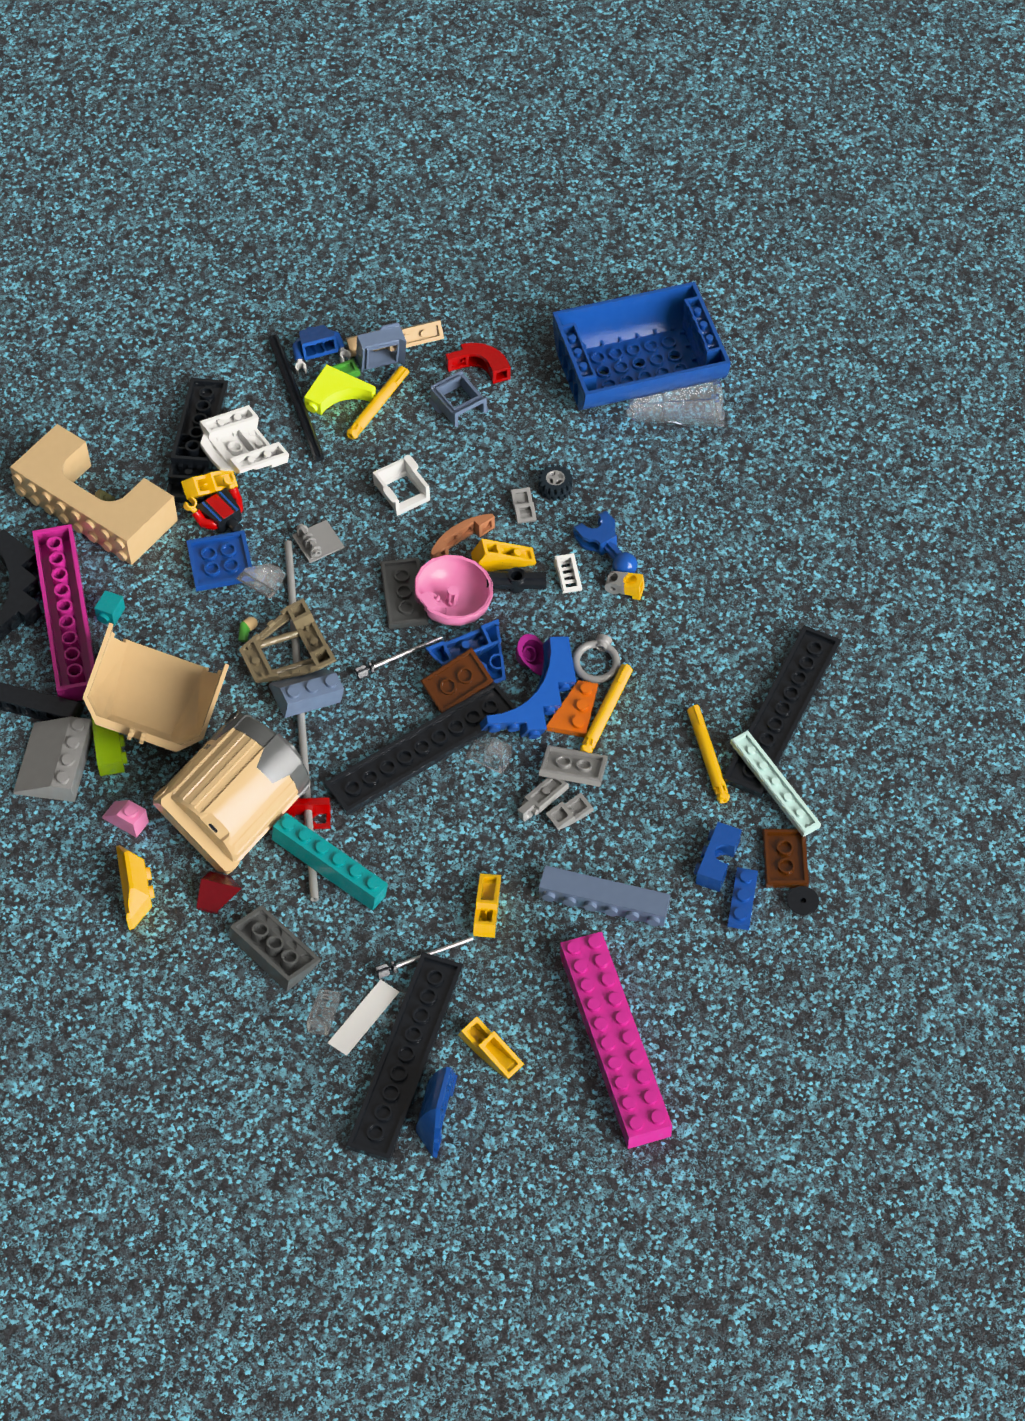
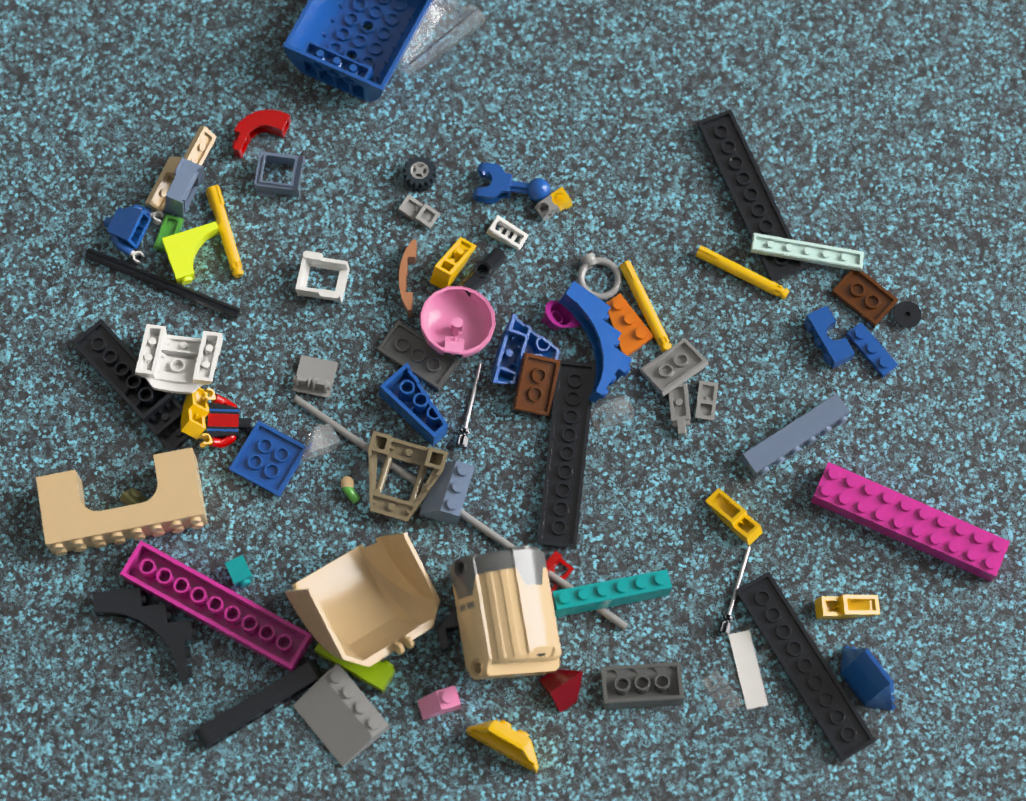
camera: 50 degrees left, 15 degrees up
(358, 612) = (413, 404): none -> blue wedge

